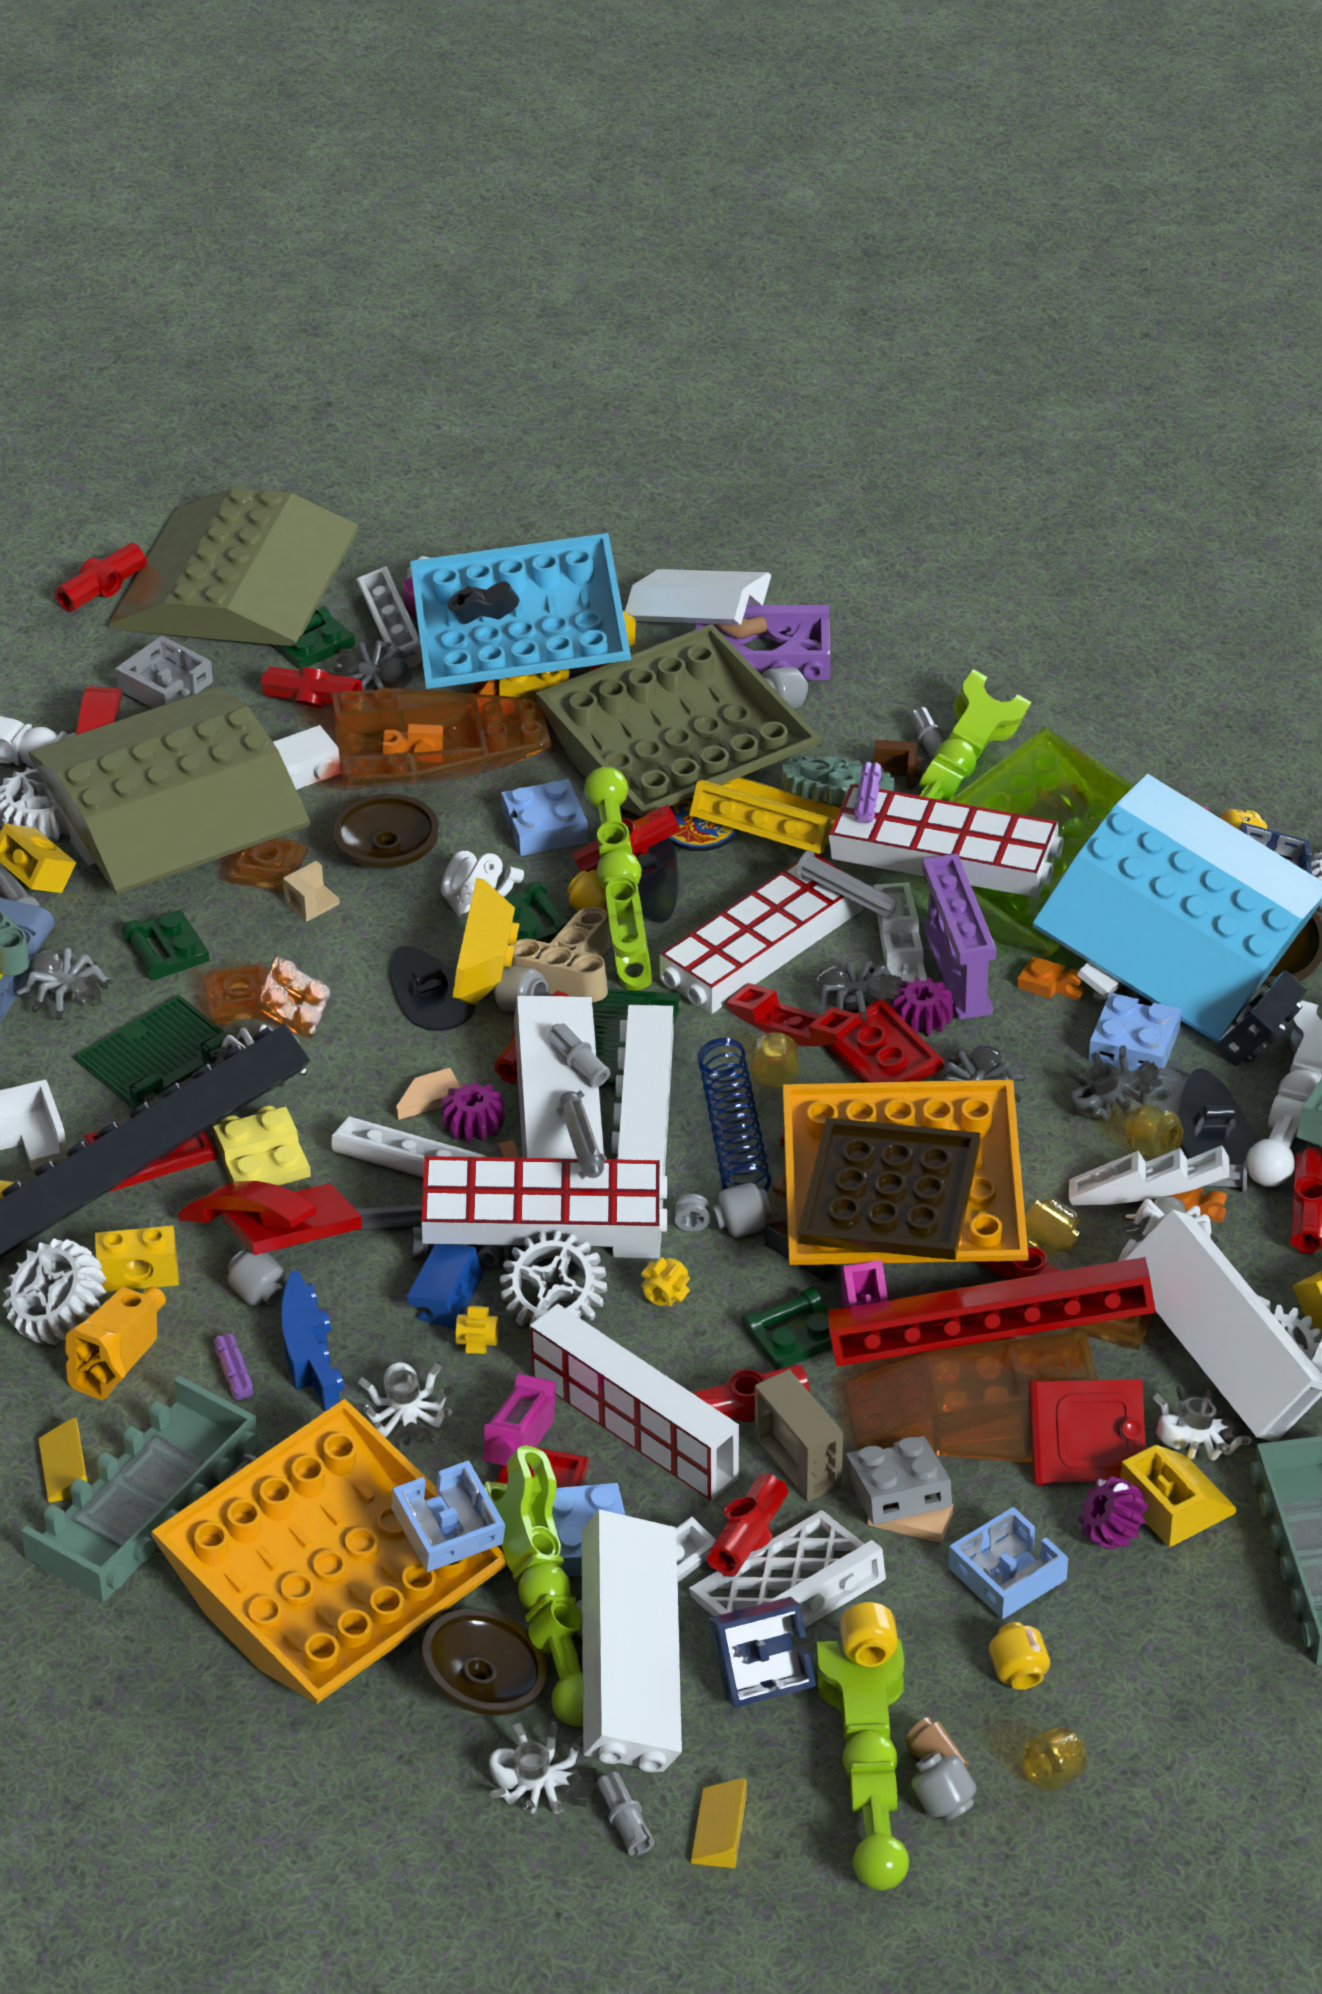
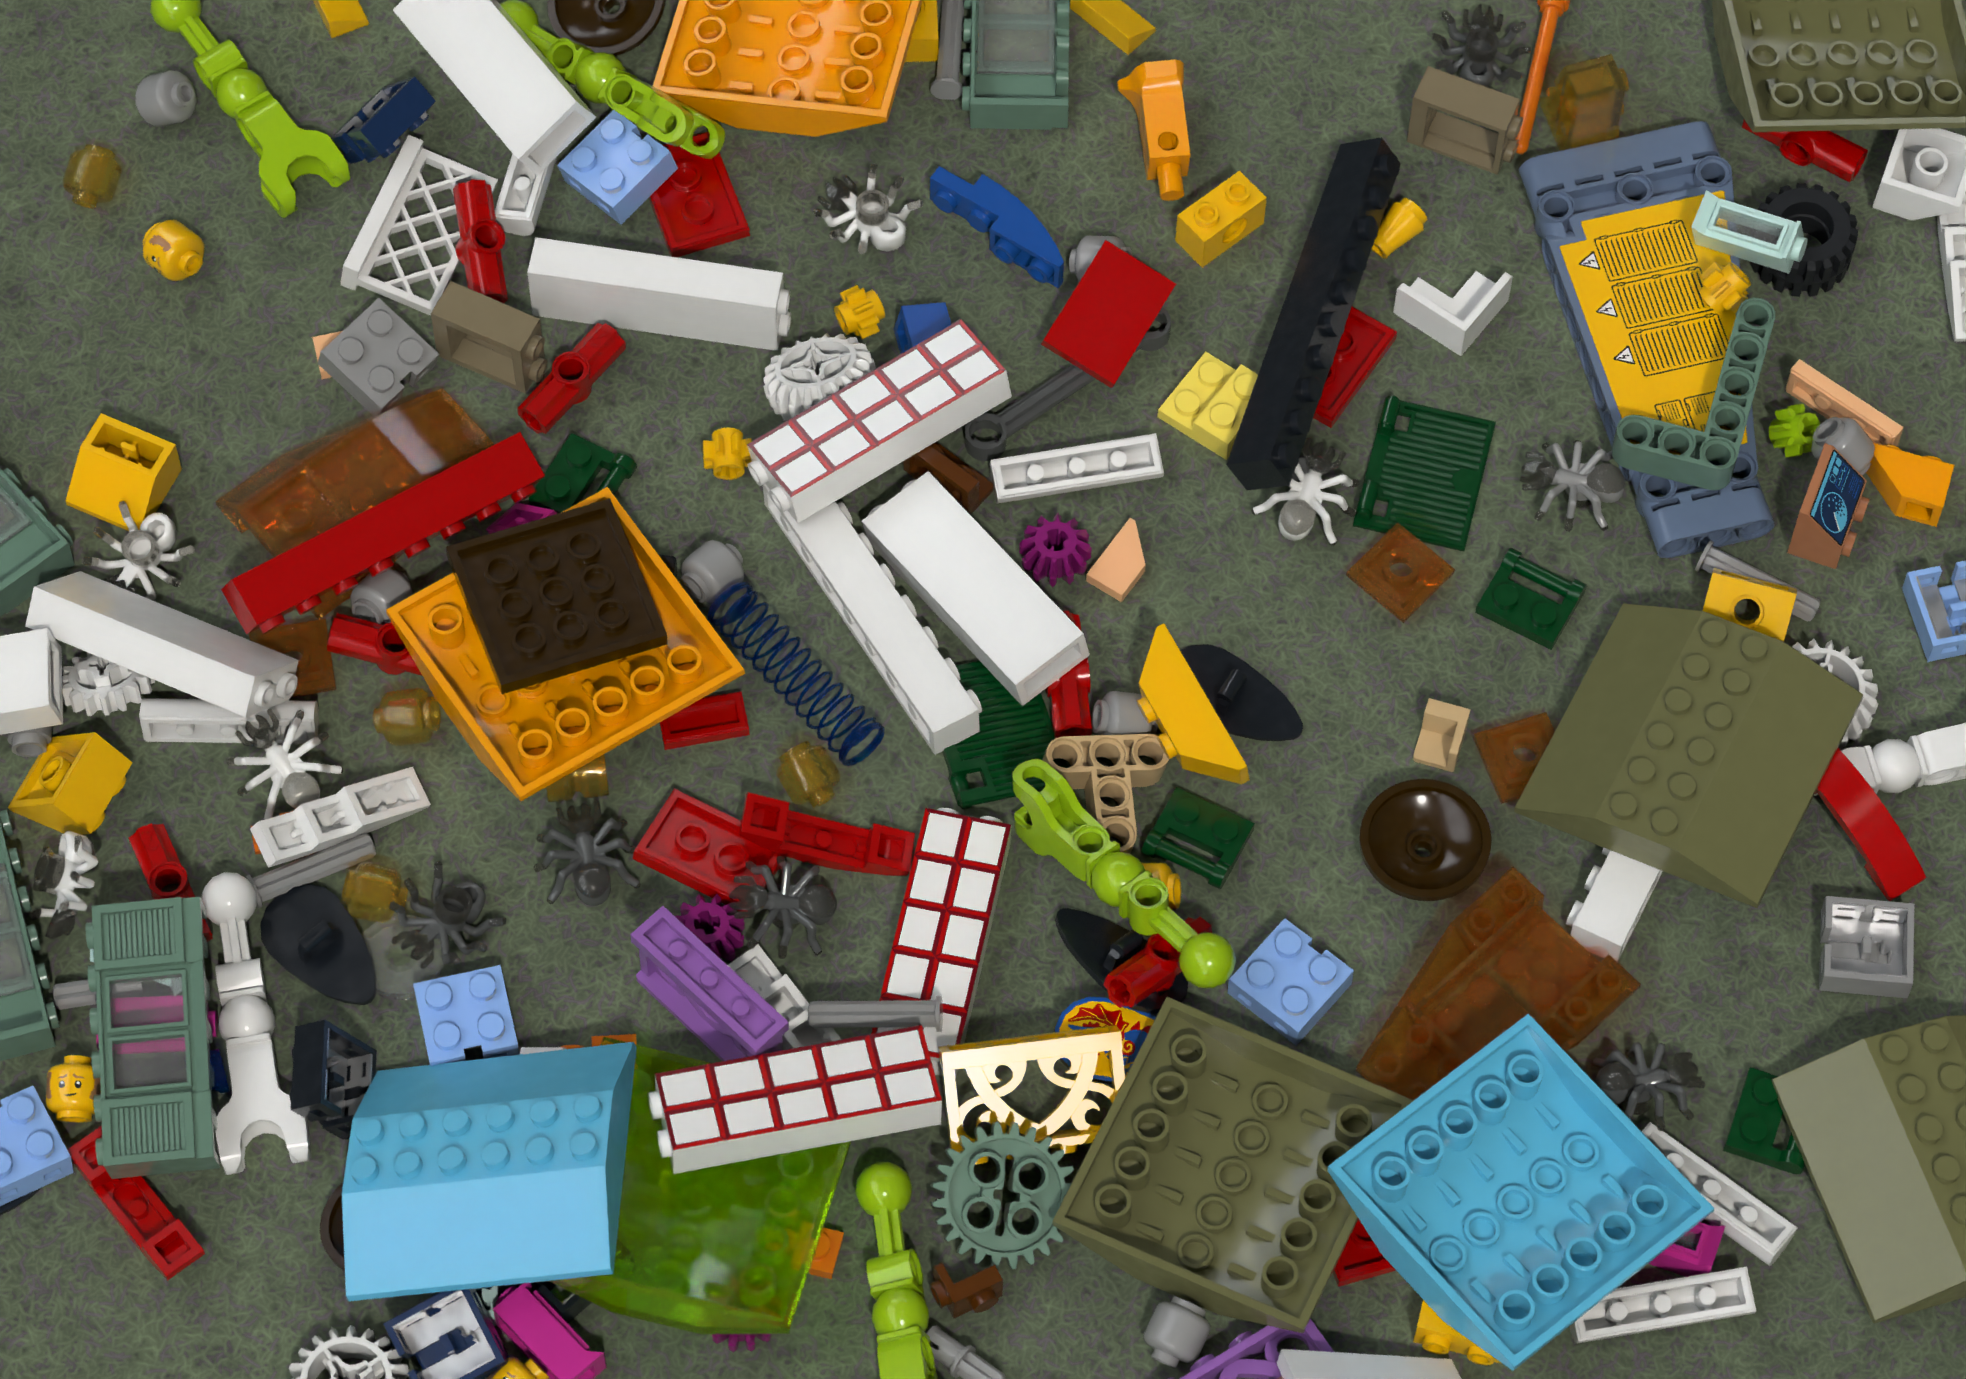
camera: 145 degrees right, 20 degrees up
(45, 1287) = (1253, 133): white gear -> none
(233, 1366) = (1050, 177): medium lavender axle -> none
(275, 1203) = (1155, 293): red slope -> none
(306, 687) = (1666, 1016): red piece -> none
(308, 995) = (1316, 572): clear orange piece -> none
(417, 739) = (1488, 976): orange plate -> none
(451, 1524) = (713, 62): light blue piece -> none
(461, 876) = (1310, 849): white helmet -> none
(476, 602) = (1539, 1161): black piece -> none
(521, 1419) = (743, 221): dark pink window -> none
(579, 1054) = (970, 601): light grey axle -> none
(581, 1134) = (885, 485): flat silver wheel -> none
(688, 1204) = (761, 550): light grey bush -> none
(867, 792) = (908, 1081): medium lavender axle -> none
(868, 1634) = (296, 162): yellow head -> none
(931, 1737) = (197, 140): medium nougat cone -> none
(999, 1566) = (234, 330): light blue piece -> none
(1079, 1428) = (234, 486): red container -> none
(1113, 1513) = (165, 413): magenta gear -> none

